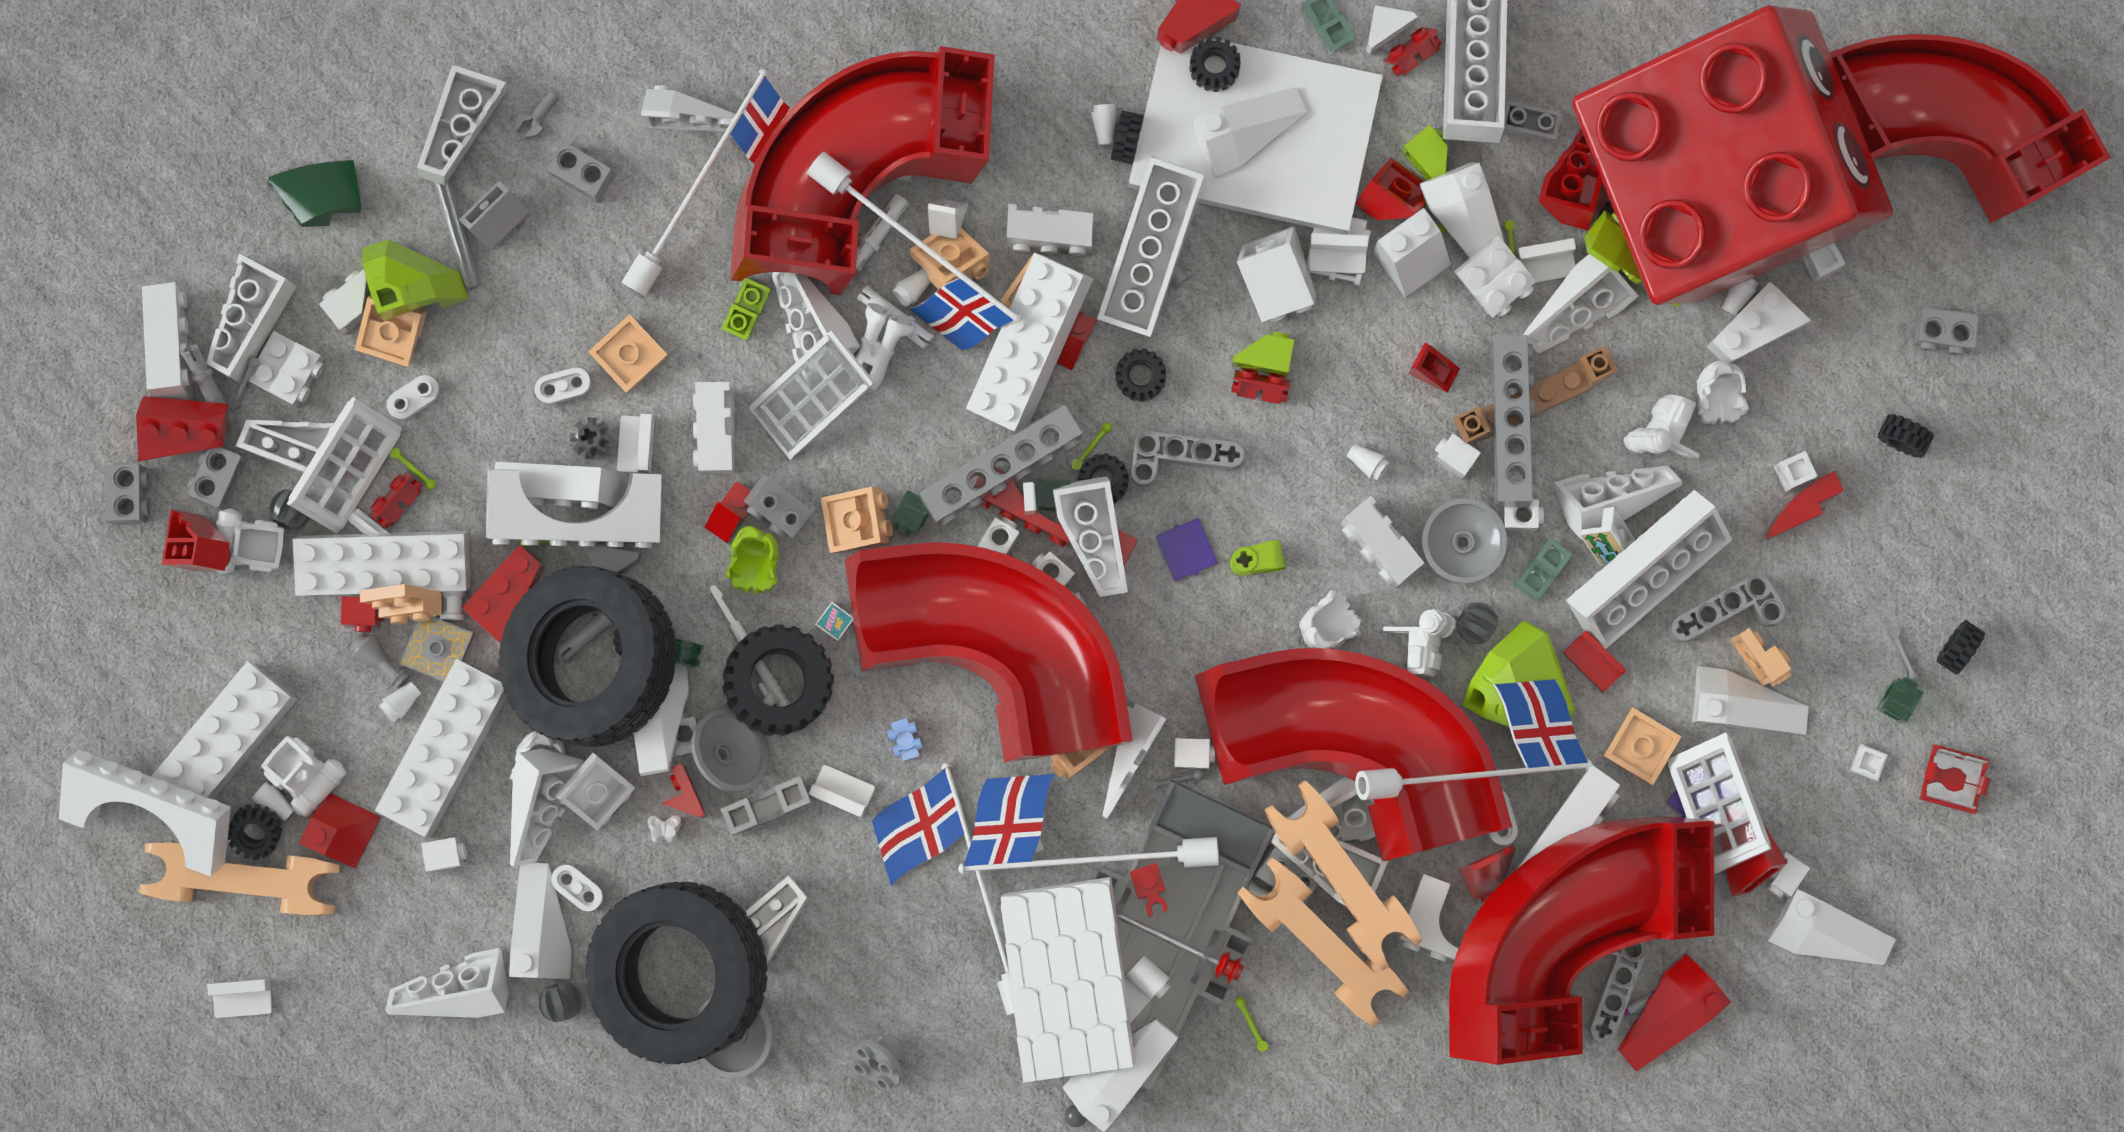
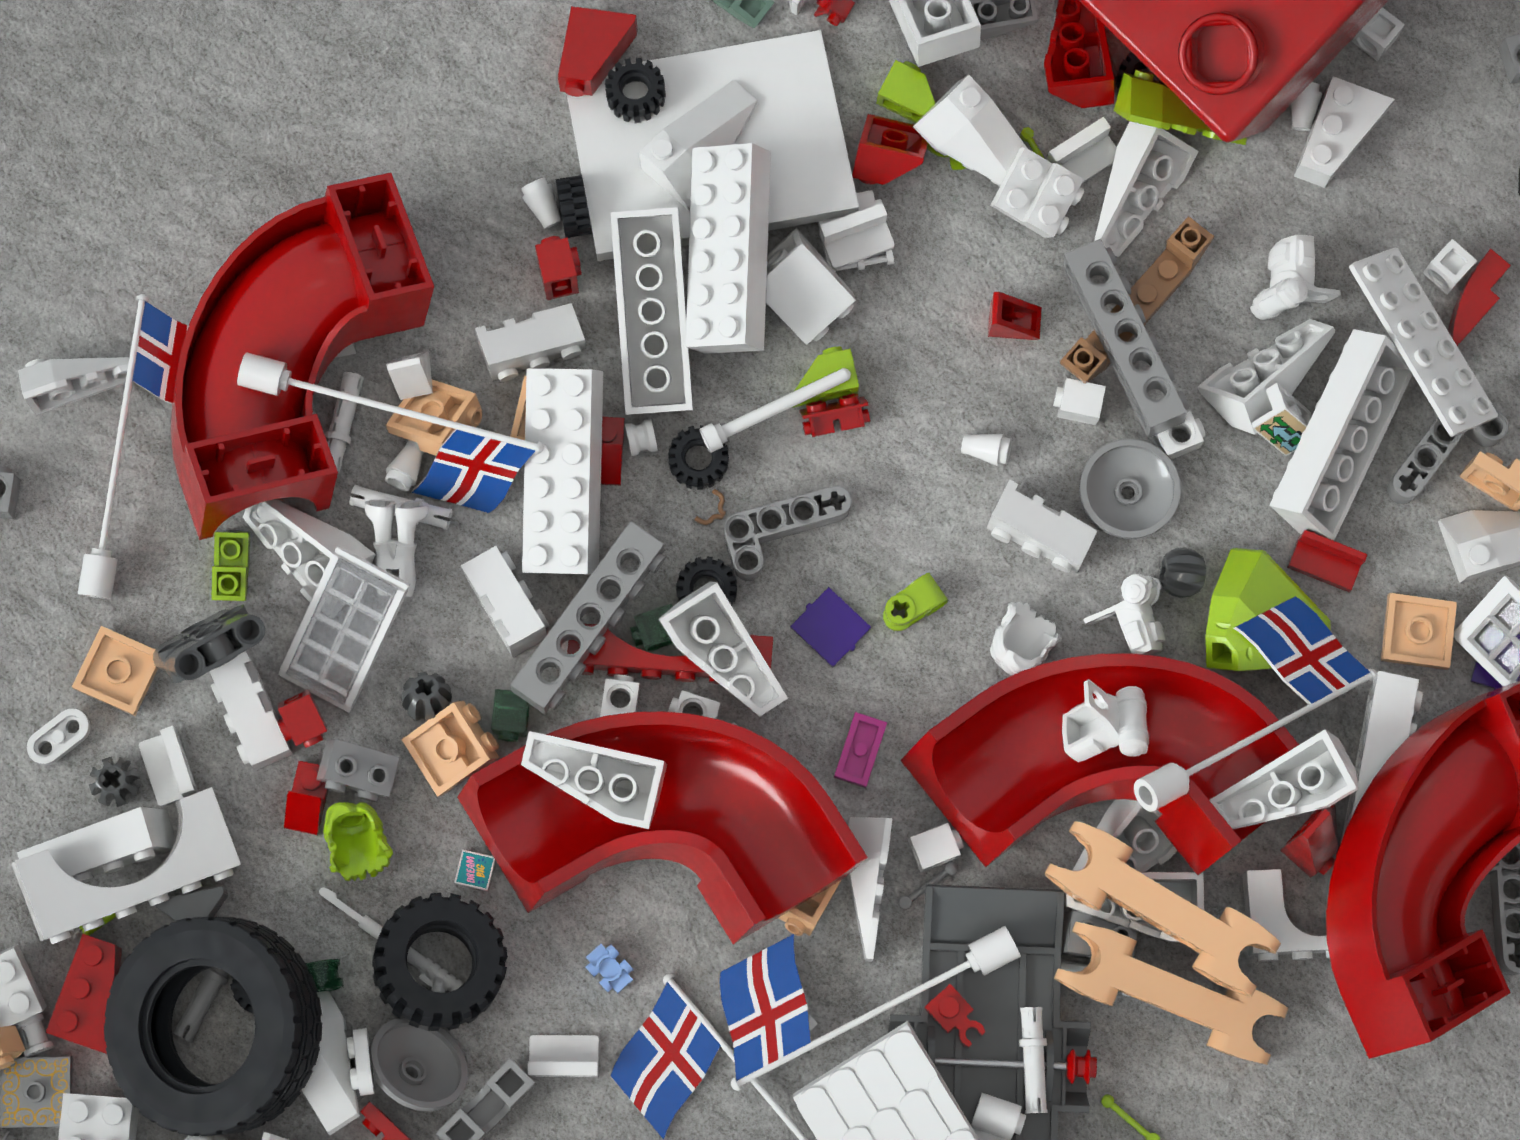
camera: 30 degrees left, 5 degrees down
(683, 742) = (361, 1076): none -> white plate
(703, 364) = (209, 644): none -> dark grey connector
(750, 451) = (301, 720): none -> red brick
(853, 472) = (425, 696): none -> dark grey piece
(945, 424) = (506, 600): none -> white wedge
(961, 599) = (607, 780): none -> white wedge
(1029, 498) = (635, 640): white tile -> none
(1077, 463) = (670, 584): lime hinge -> none
(1094, 180) = (558, 267): none -> red brick
(1102, 340) = (641, 437): none -> white wheel
(1140, 421) = (715, 516): none -> medium nougat piece
(1160, 364) = (716, 435): none -> white piece
(1167, 654) = (860, 750): none -> dark pink plate
(1194, 947) = (1033, 1059): none -> white pin
(1230, 222) = (728, 248): none -> white brick
(1362, 716) = (1106, 723): none -> white piece
(1413, 253) = (937, 202): white slope -> none
(1487, 824) = (1293, 784): none -> white wedge
(1543, 569) = (1227, 485): sand green slope -> none
(1721, 392) = (1332, 216): white hair -> none
(1745, 522) = (1423, 341): none -> white bracket

